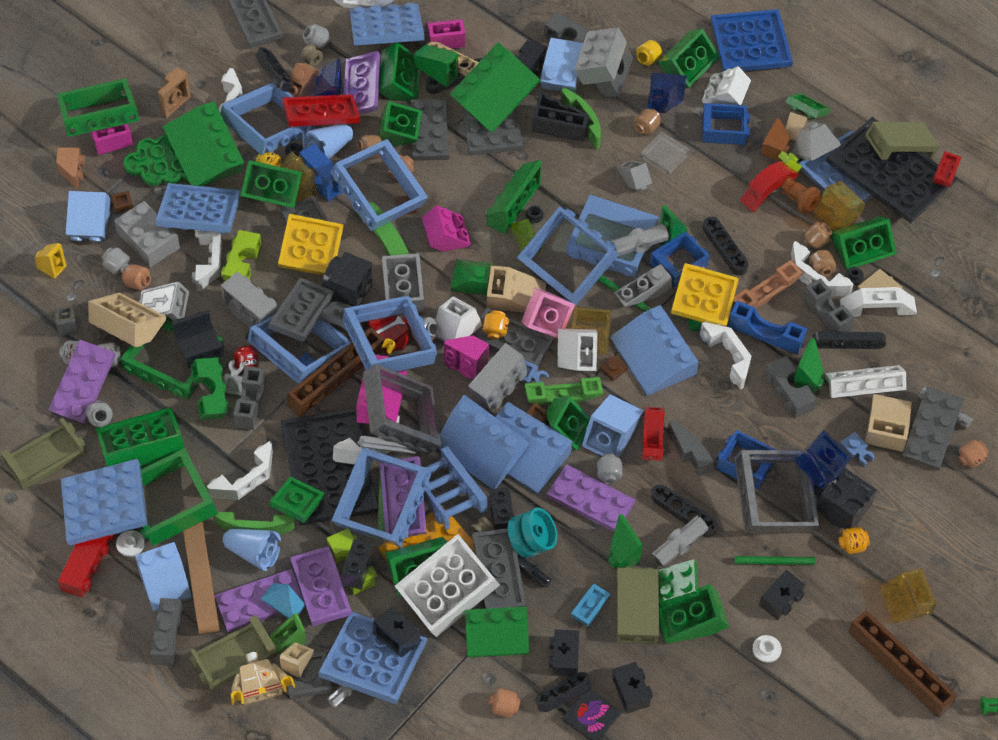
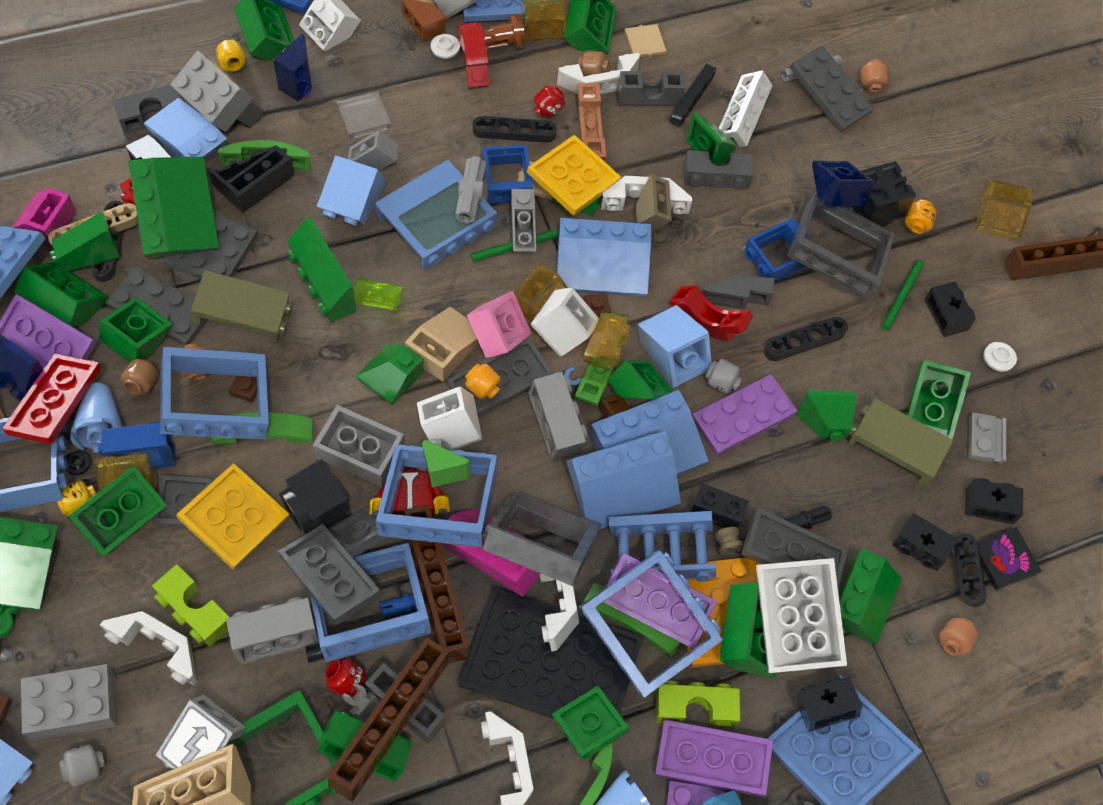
camera: 65 degrees left, 5 degrees up
(136, 277) = (126, 751): nougat head -> none
(197, 337) = (286, 722): black panel -> none
(198, 208) = (84, 617): medium blue plate -> none
(228, 383) = (388, 720): none -> reddish brown brick
(357, 564) = (724, 698): black brick -> none
(383, 444) = (578, 590): light grey axle -> none
(404, 322) = (444, 465): none -> bright green slope
(445, 229) = (313, 363): dark pink slope -> none
(456, 167) = (241, 304): none -> olive panel
(466, 355) = (506, 430): dark pink slope -> none
(532, 532) = (773, 491): teal wheel -> none
(534, 210) = (354, 264): black plate -> none
(545, 233) = (443, 223): medium blue window -> none
(578, 380) = (606, 341): none -> clear yellow slope
(590, 605) = (876, 486): dark azure plate -> none
(591, 176) = (351, 191): none -> light blue slope
(647, 121) = (316, 105): medium nougat head -> none
(672, 223) = (472, 146): green slope -> none
(678, 582) = (898, 387): green plate -> none
(680, 541) = (847, 360): light grey piece -> none
(686, 667) = (987, 438): none -> light grey plate
(721, 357) = (654, 203): none -> dark tan slope
(725, 111) = (362, 61): blue window -> none
(747, 321) = (661, 138): blue arch -> none
(761, 163) = (445, 46): none -> white piece
(763, 252) = (549, 101): none -> red head
(790, 160) = (458, 18): lime plate -> none
(817, 235) = (560, 49): medium nougat head -> none
(854, 279) = (620, 49): black plate -> none
(857, 447) = (806, 156): medium blue plate -> none
(879, 298) = (665, 49): white slope -> none
(888, 422) = (805, 116): tan slope -> none

